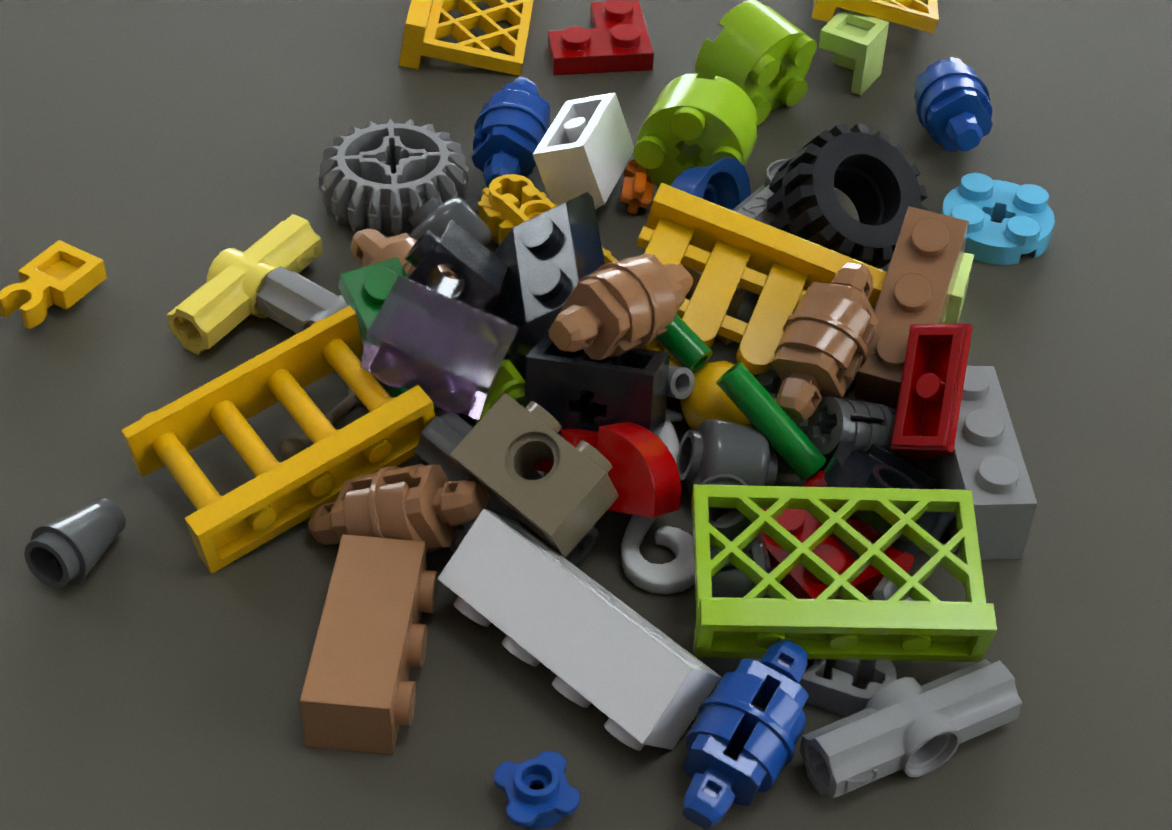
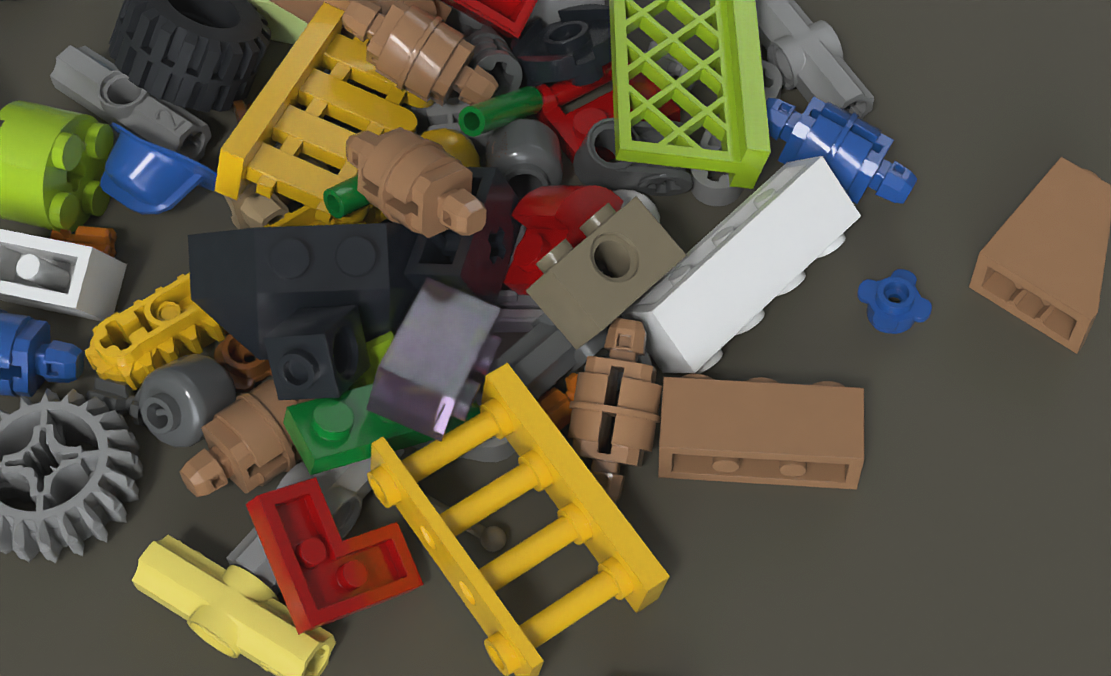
camera: 85 degrees left, 15 degrees up
(255, 299) = (319, 571): none -> red plate

